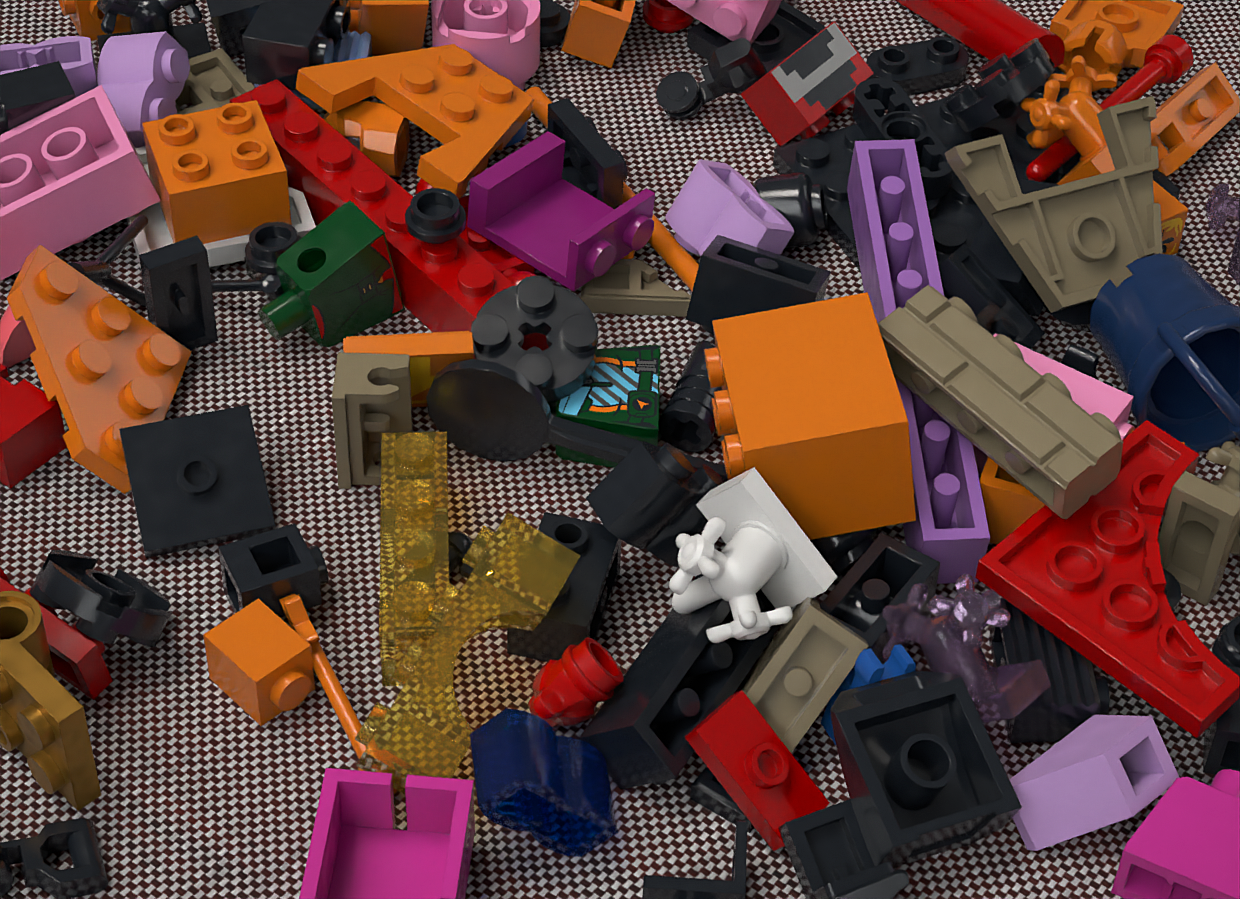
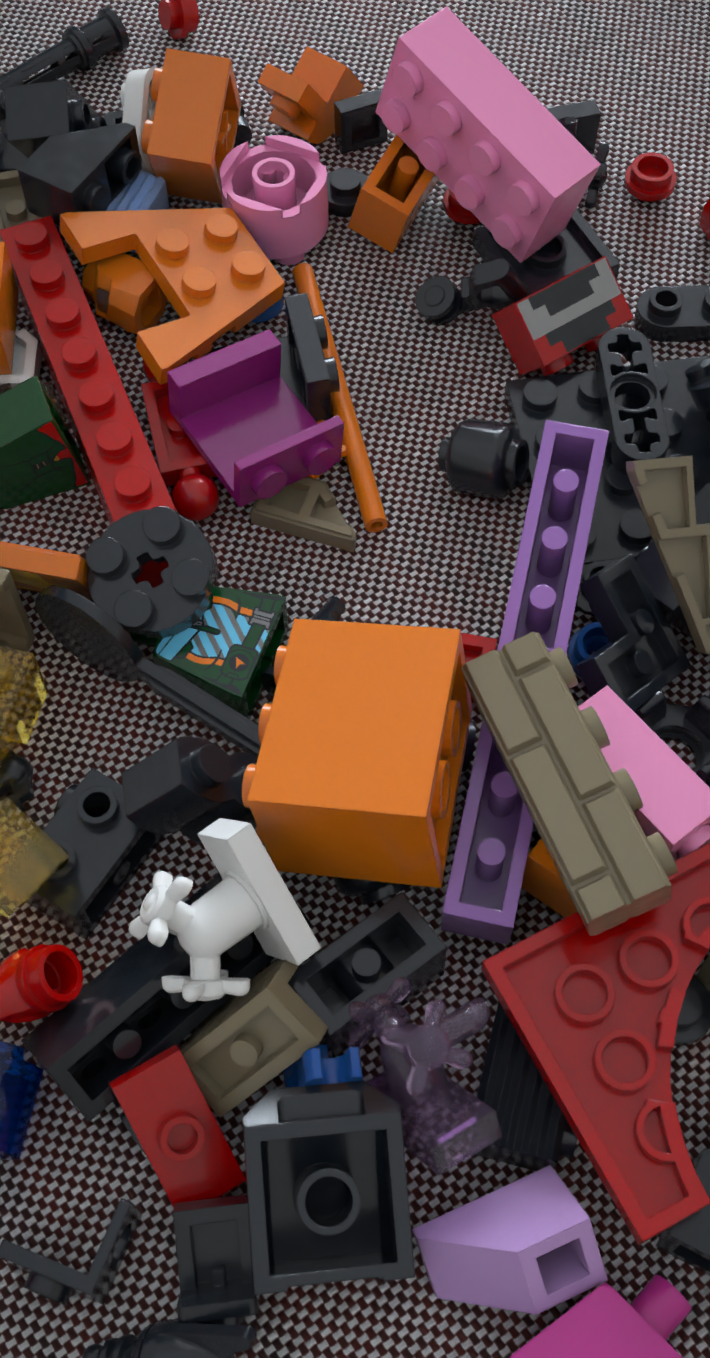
camera: 20 degrees right, 15 degrees up
(435, 216) = (113, 409): black plate -> none
(725, 204) = (416, 466): lavender brick -> none
(747, 280) = (410, 556): black brick -> none

